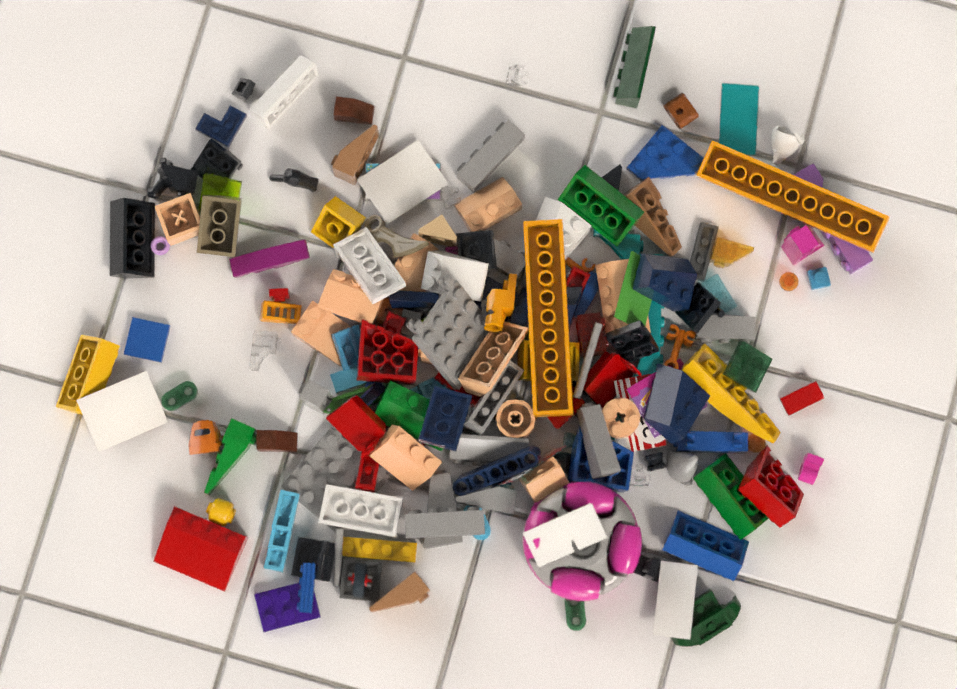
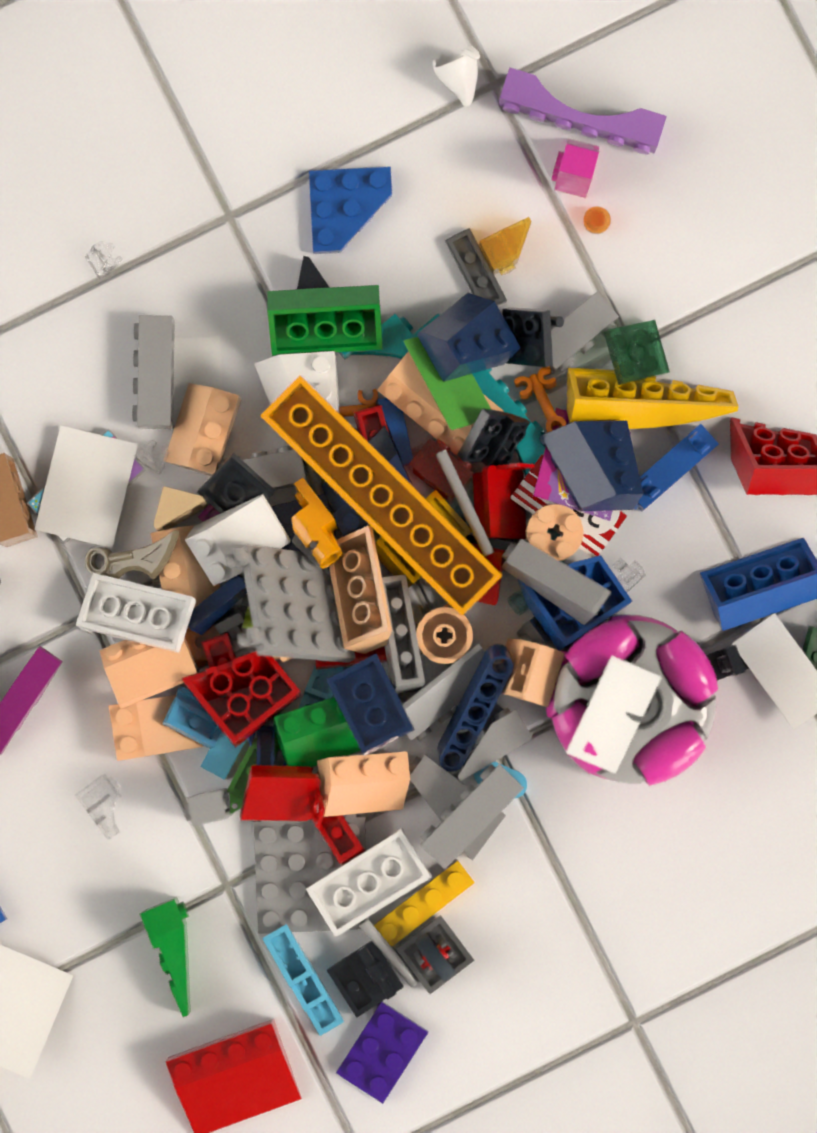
camera: 40 degrees left, 5 degrees up
(179, 395) = (60, 937): clear green plate -> none
(204, 437) = (130, 959): orange helmet -> none
(221, 512) = (220, 1020): yellow head -> none
(273, 305) = (79, 740): light orange slope -> none
(276, 441) = (209, 889): copper slope -> none
(279, 294) = (66, 731): red plate -> none
(307, 584) = (387, 1016): blue piece -> none
(337, 222) = (56, 595): yellow slope -> none
(406, 593) = (496, 928): medium nougat slope -> none
(544, 457) = (512, 643): sticker -> none
(573, 611) = (689, 778): clear green plate -> none
(634, 67) = (222, 132): dark green slope -> none
(653, 460) = (627, 543): black wheel -> none
(654, 220) = (397, 285): medium nougat wedge -> none
(681, 111) = (315, 137): dark orange piece -> none
(682, 466) = (662, 522): light grey hat -> none
(719, 290) = (531, 297): clear light blue plate -> none
(721, 485) = (721, 504): green slope -> none
(739, 117) = (384, 90): teal sticker -> none
(756, 443) = (718, 427): clear orange plate -> none
(793, 196) = (522, 124): light orange brick -> none
(802, 398) = (723, 333): red slope -> none
(810, 468) = (799, 402): dark pink leg -> none
(818, 278) = (625, 187): dark azure plate -> none

